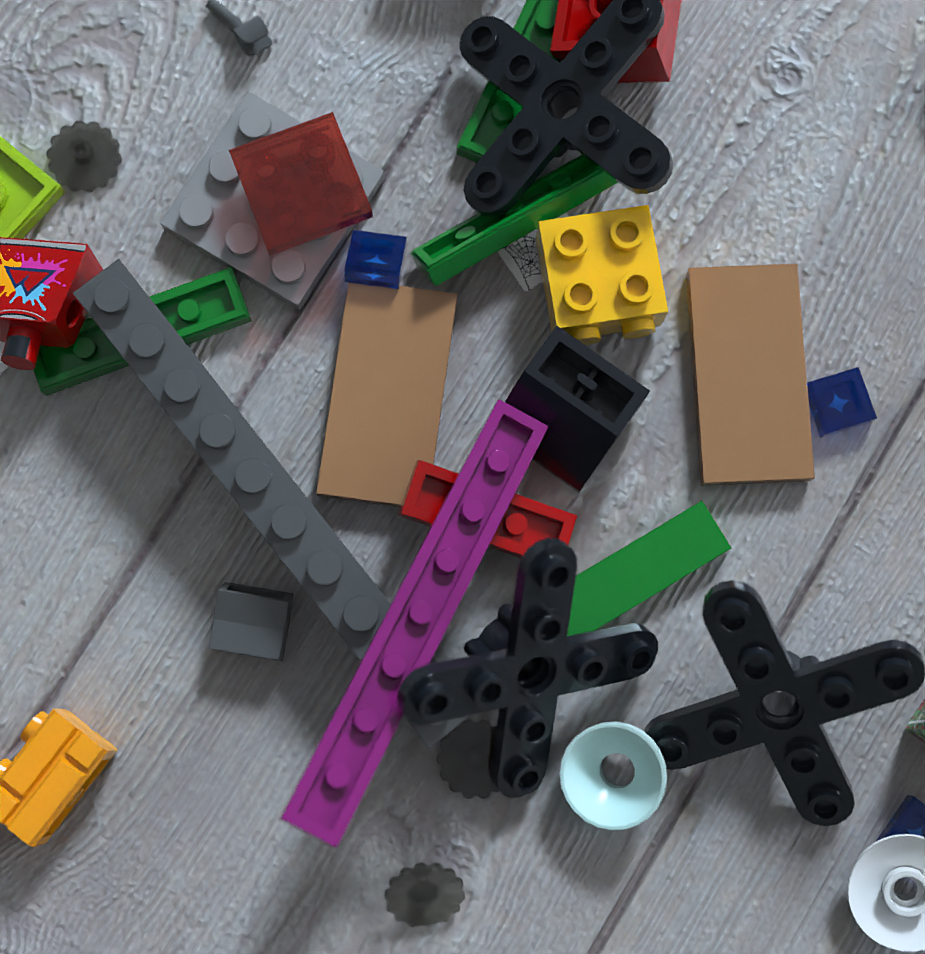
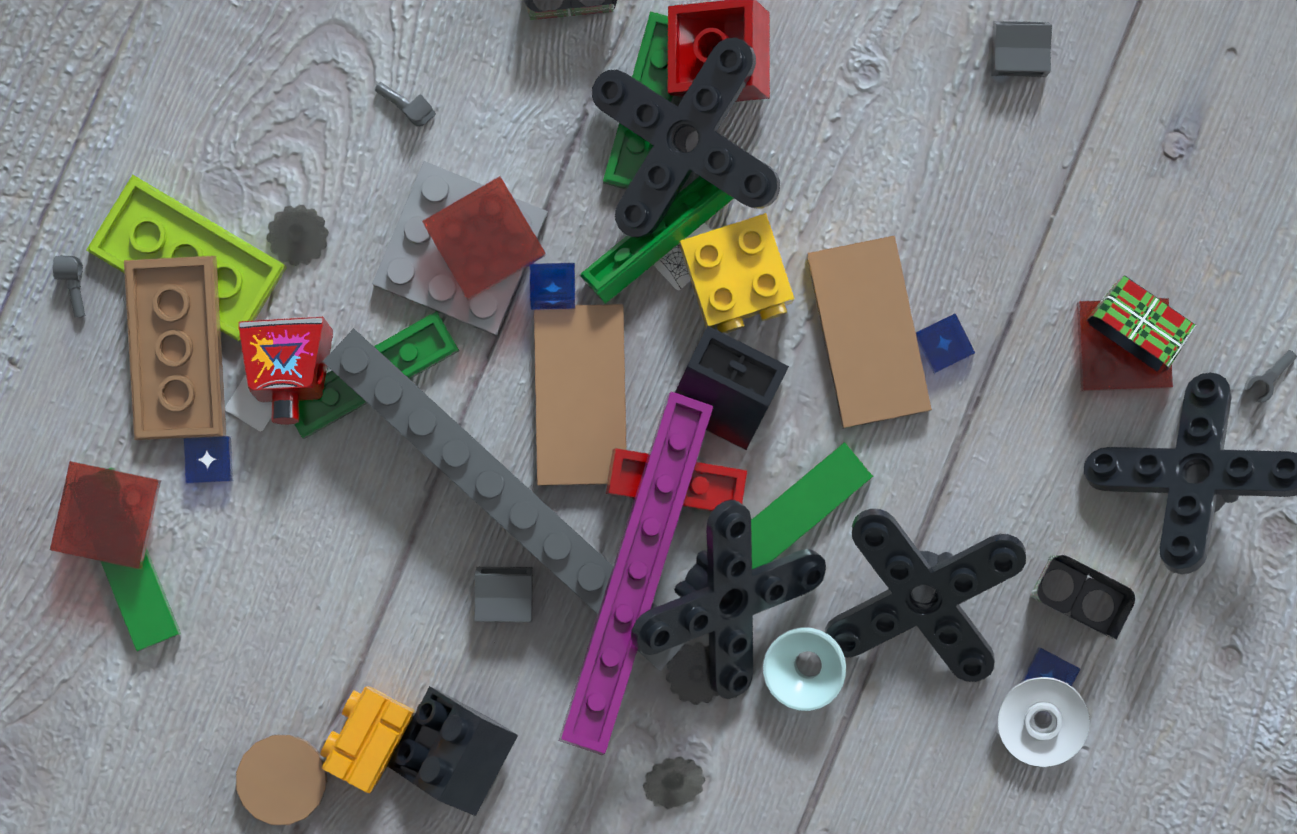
camera: 10 degrees left, 5 degrees up
(151, 810) = (452, 751): none -> black slope

